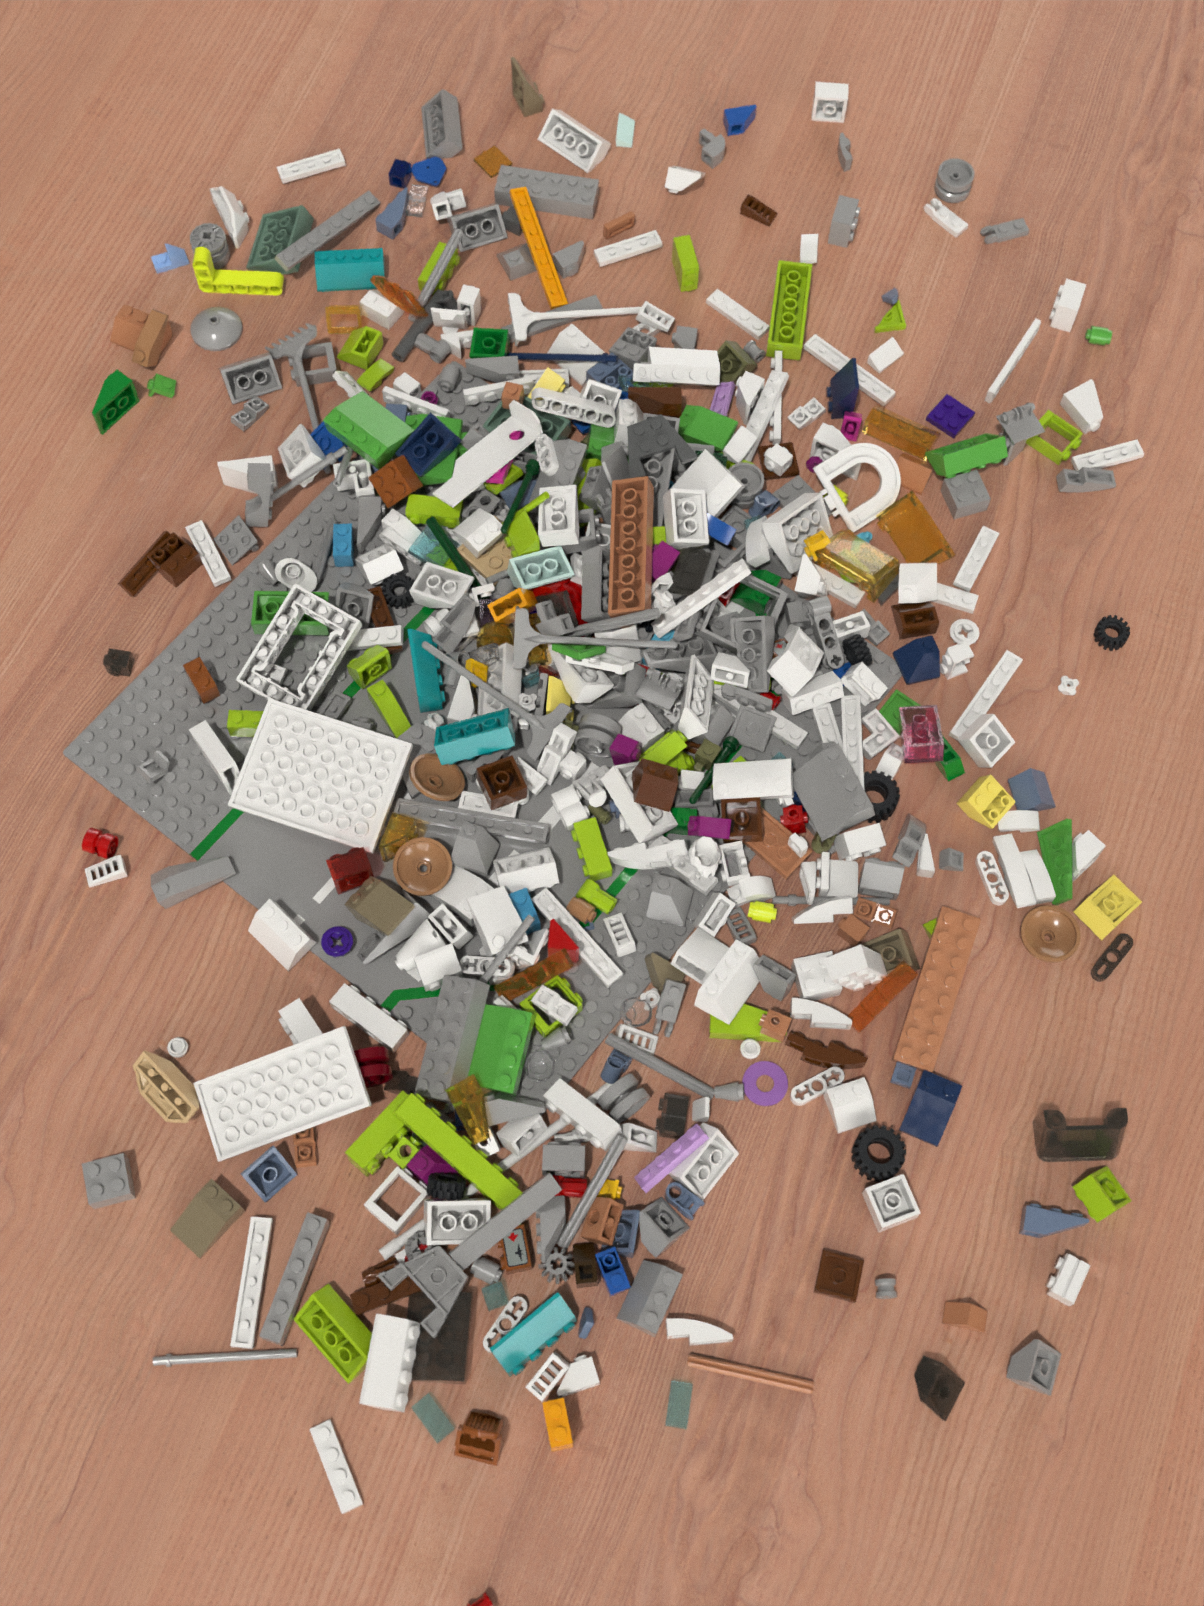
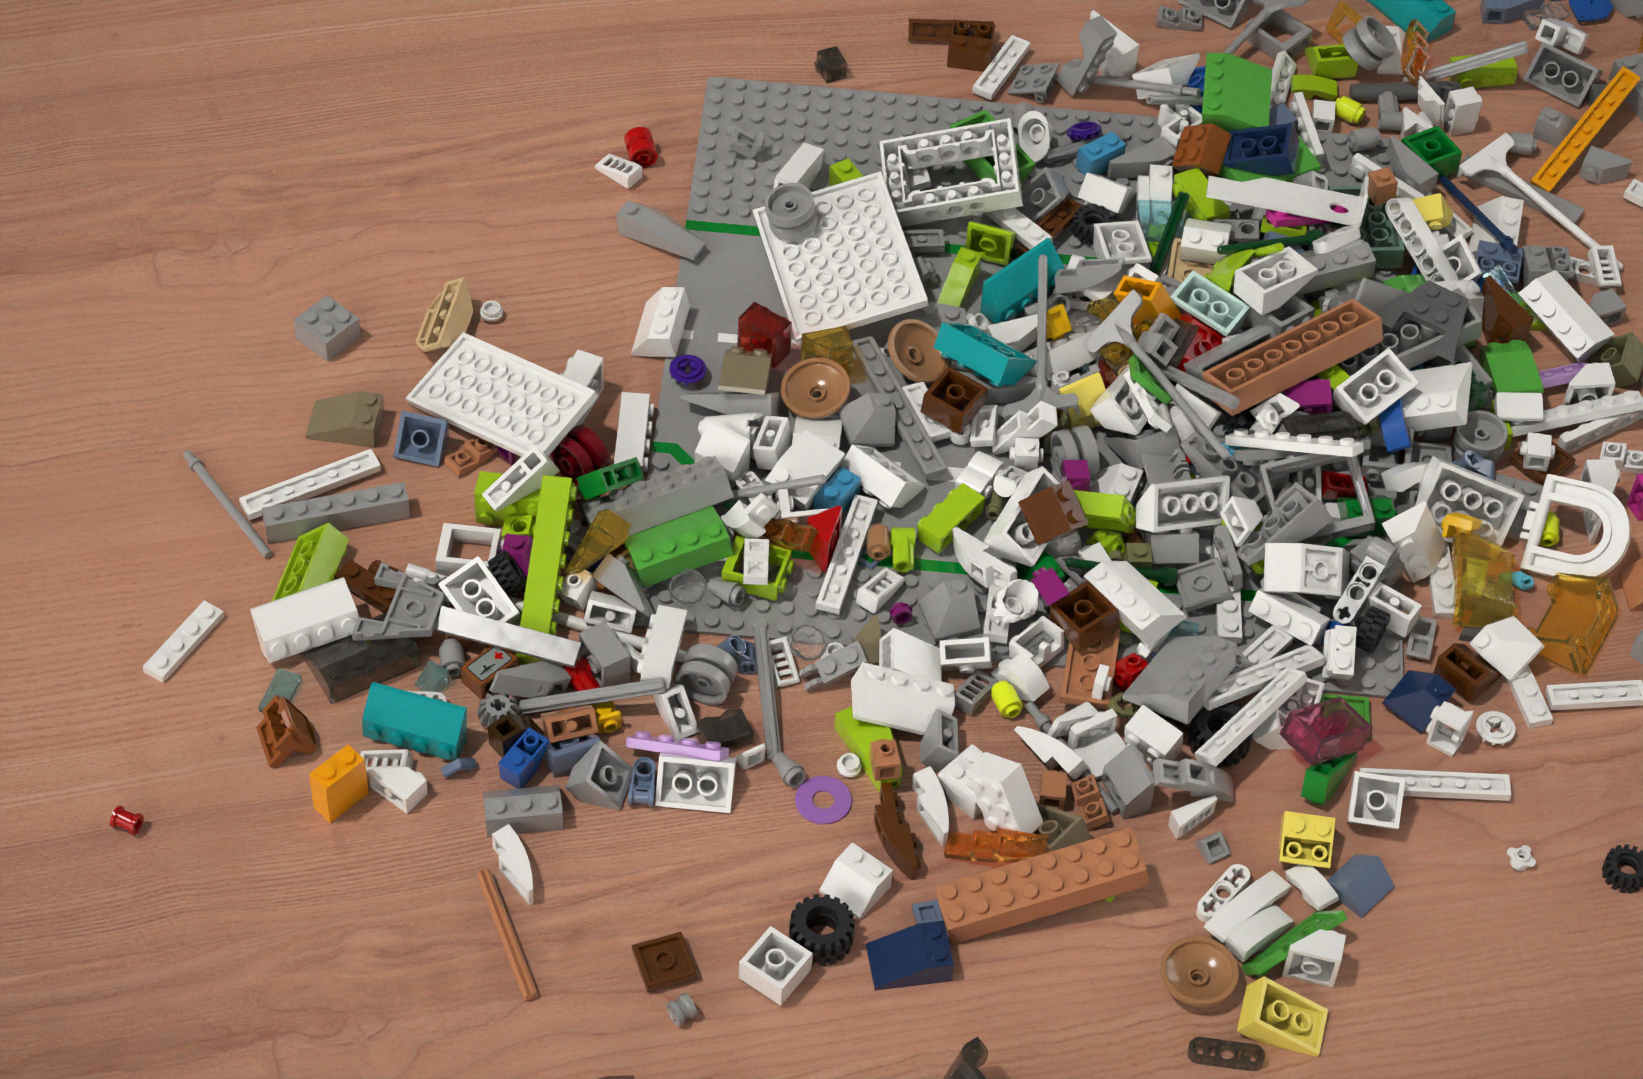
camera: 55 degrees right, 15 degrees down
(201, 680) = (863, 127): dark orange brick -> none
(261, 782) = (791, 211): none -> light grey wheel
(309, 538) = (1084, 131): none -> dark purple gear
(379, 317) = (1369, 42): none -> light grey wheel
(380, 1129) = (520, 479): none -> white slope
(411, 1061) = (610, 478): none -> green slope
(413, 367) = (1349, 110): none -> neon yellow brick
(429, 395) = (1326, 137): magenta plate -> none
(518, 287) = (1523, 143): none -> light grey brick
(519, 988) = (751, 519): none -> white brick
(641, 372) = (1519, 278): white bracket -> none
(650, 934) = (901, 613): none -> magenta plate
(678, 1404) = (432, 888): clear light blue tile -> none
(776, 699) = (1250, 584): red bush -> none
(801, 1087) = (851, 835): white beam -> none
(887, 772) = (1251, 716): none -> white plate

